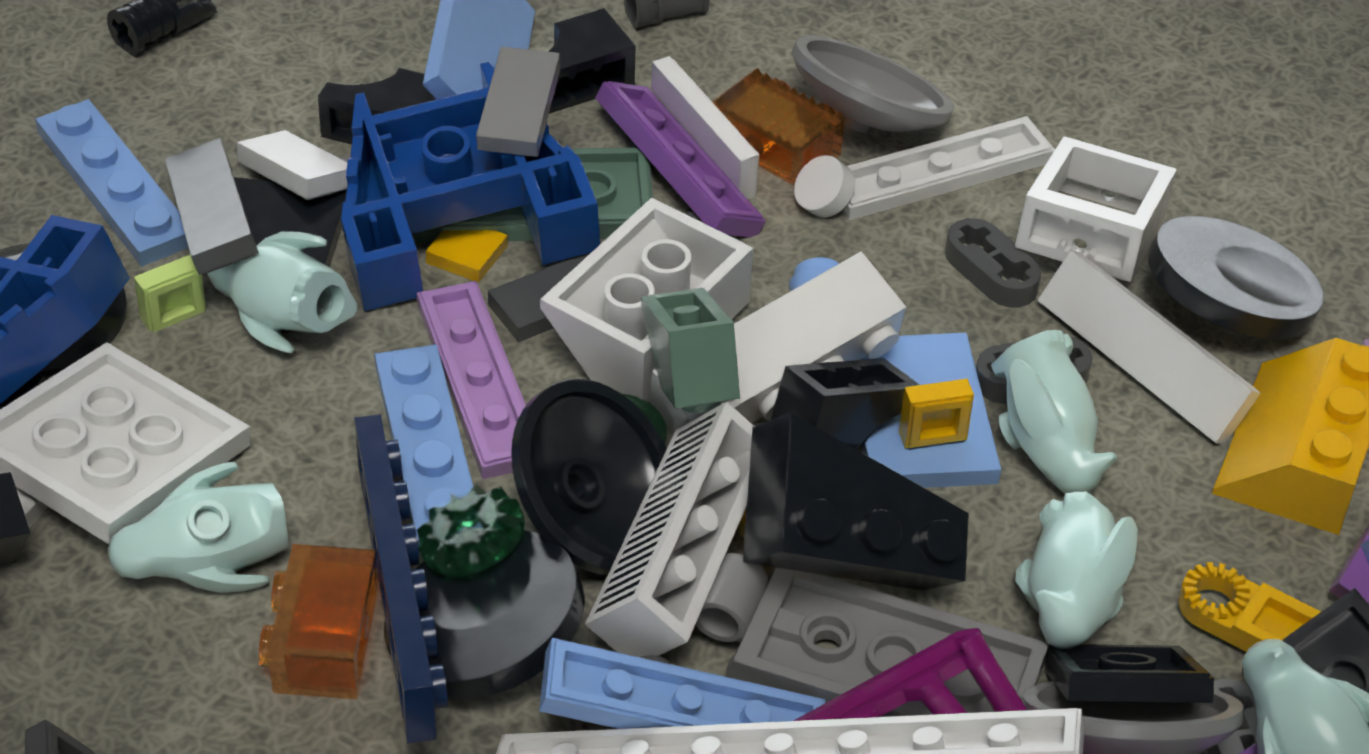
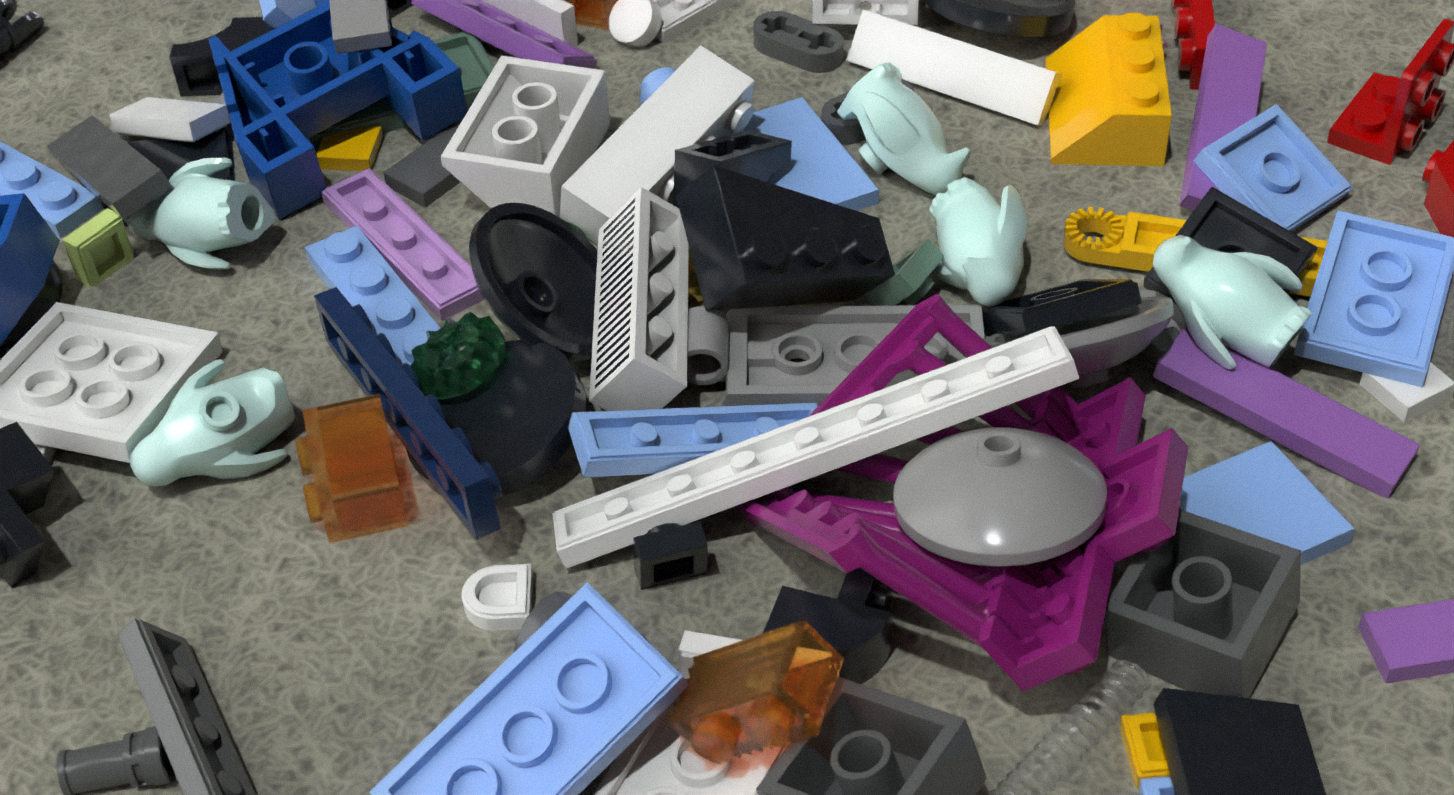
camera: 15 degrees left, 0 degrees up
(692, 349) = (594, 154): sand green slope -> none
(936, 413) = (811, 157): yellow tile -> none
(985, 585) = (910, 277): none -> sand green plate

